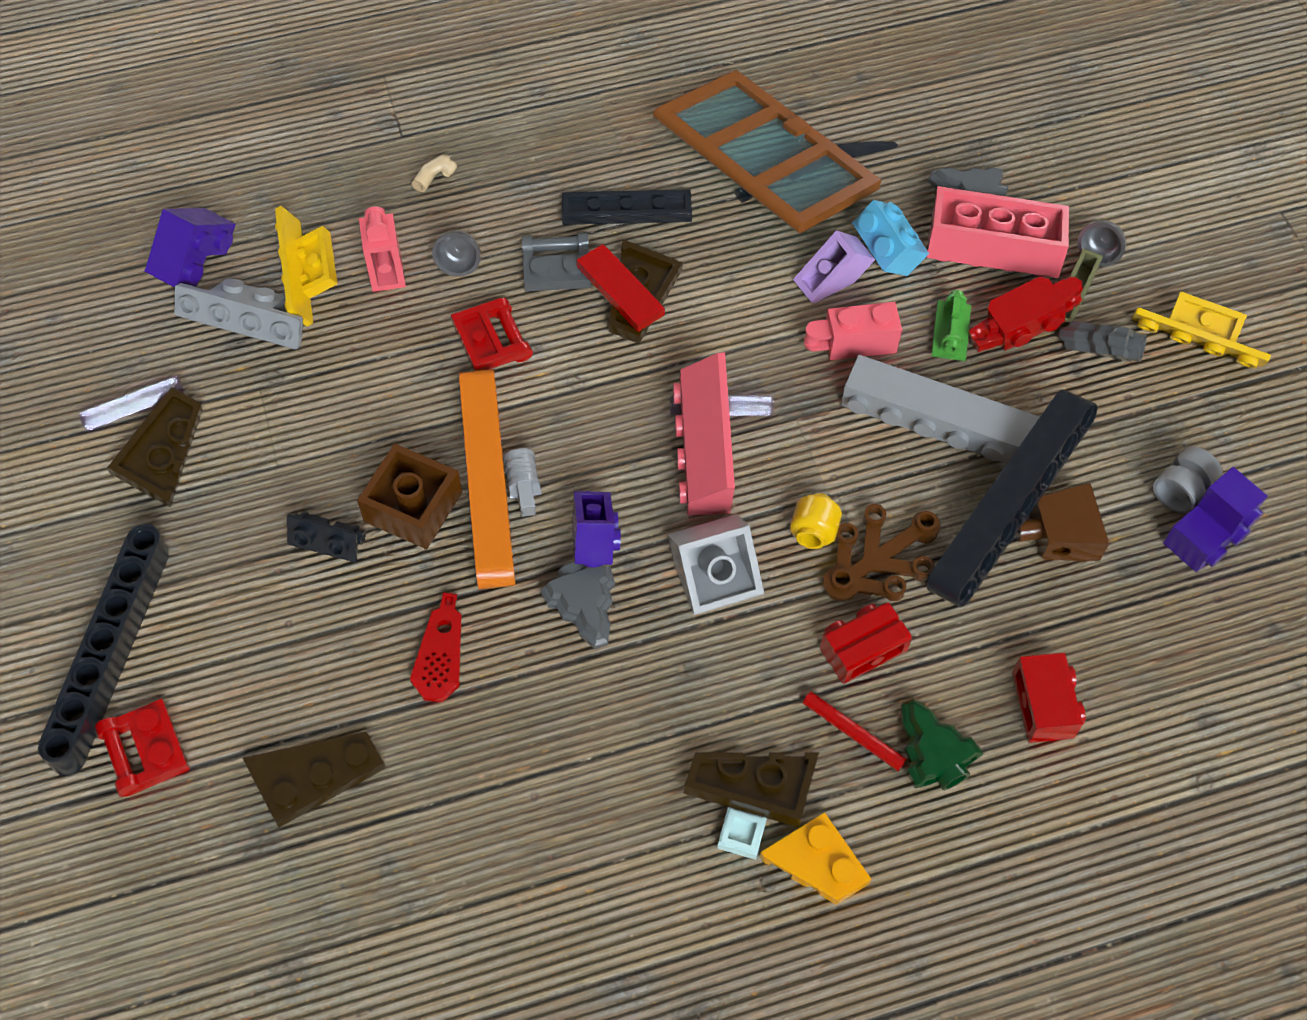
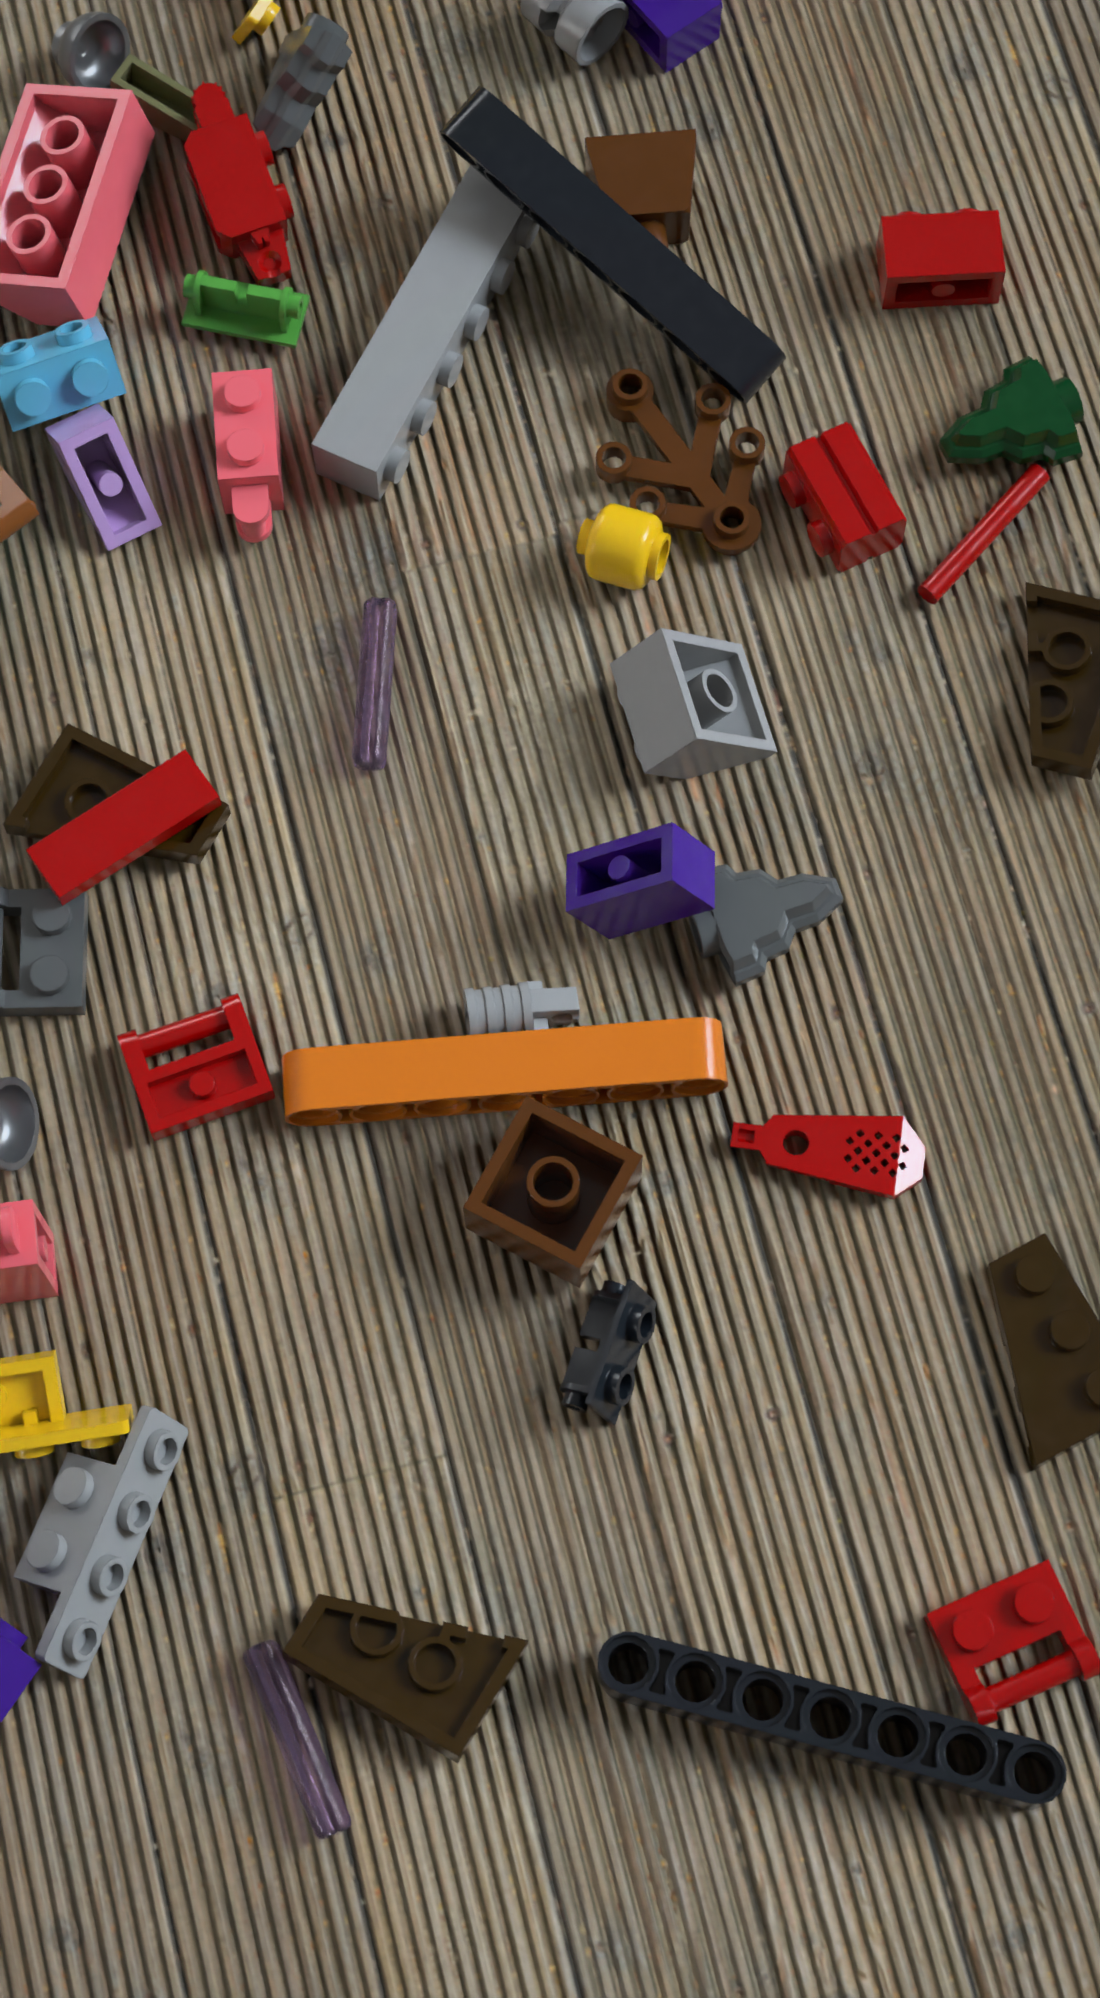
camera: 85 degrees left, 10 degrees up
(706, 437) = (470, 689): coral slope -> none

